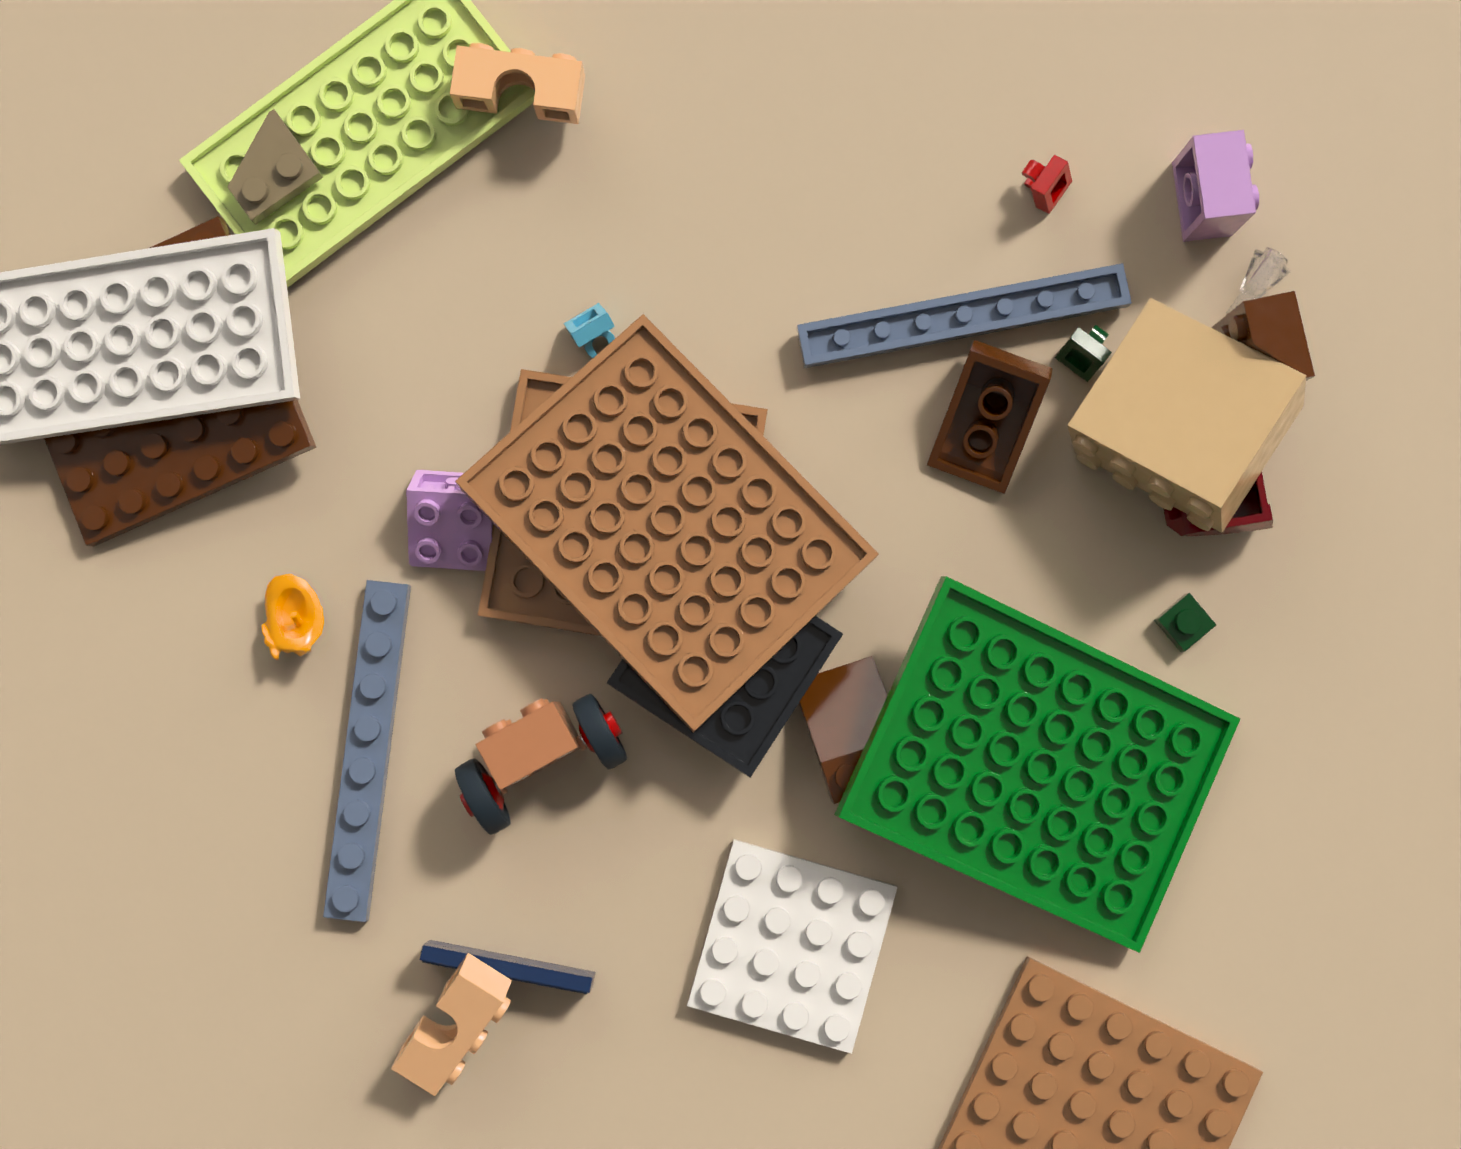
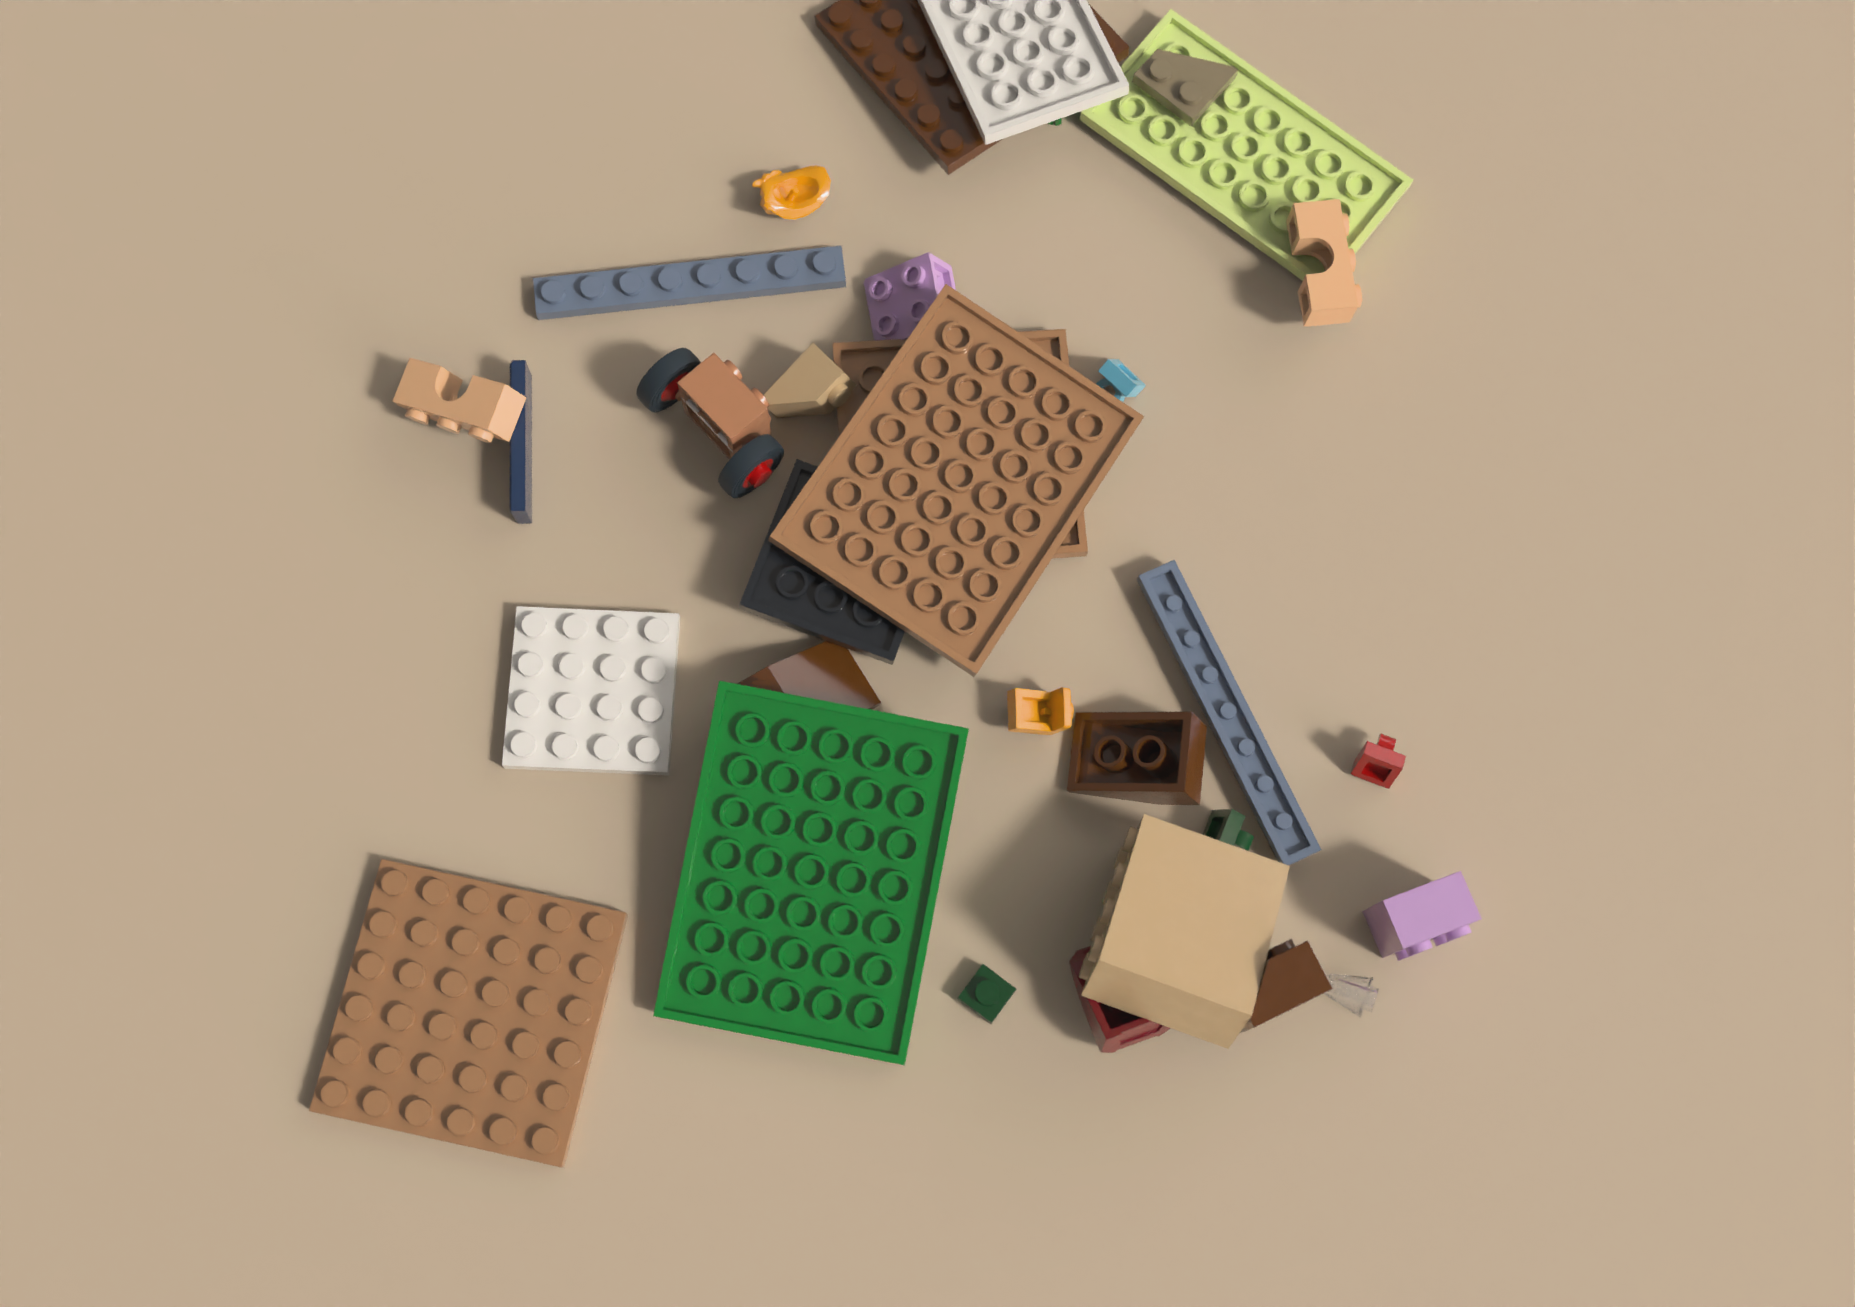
camera: 70 degrees right, 10 degrees down
(523, 648) = (809, 386): none -> tan slope
(921, 500) = (1039, 711): none -> light orange bracket

